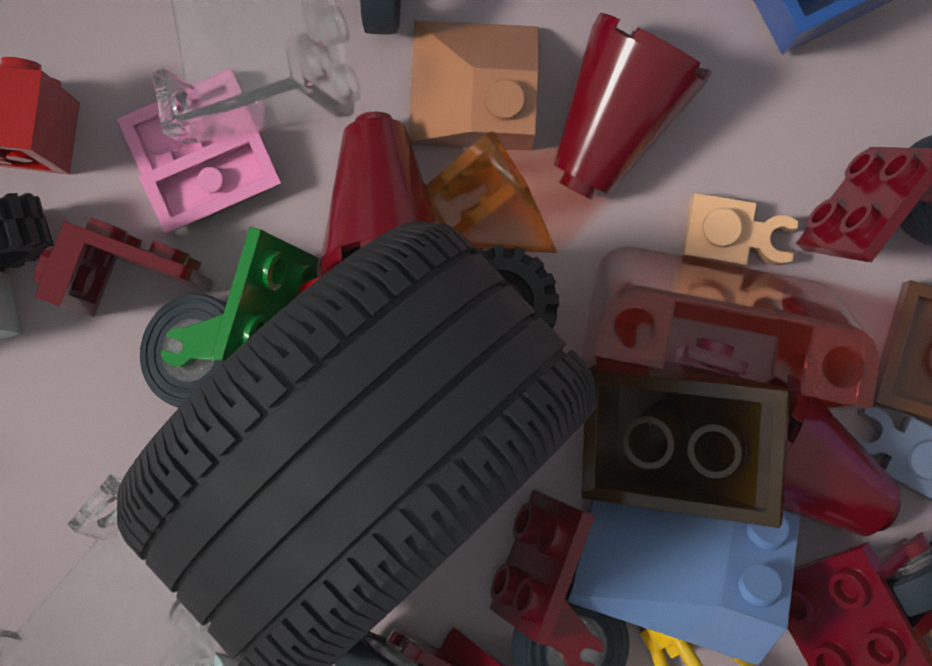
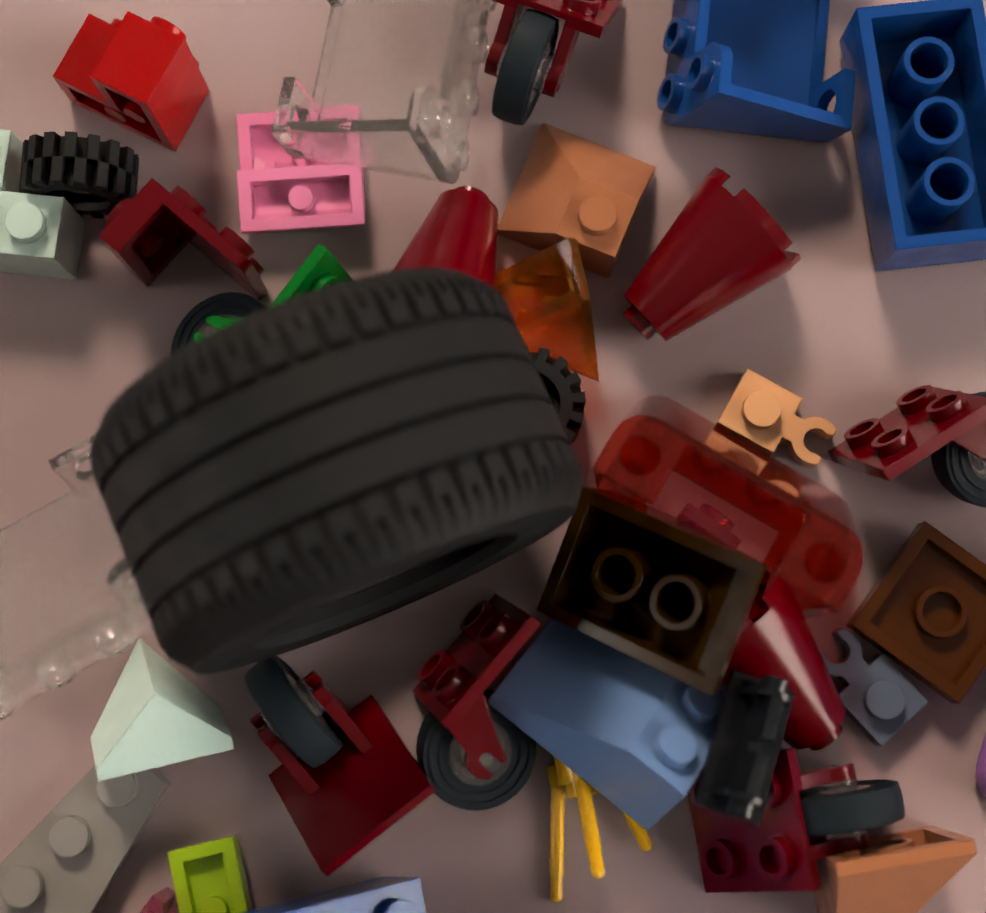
camera: 20 degrees right, 5 degrees down
(823, 560) = (745, 746): none -> black hinge

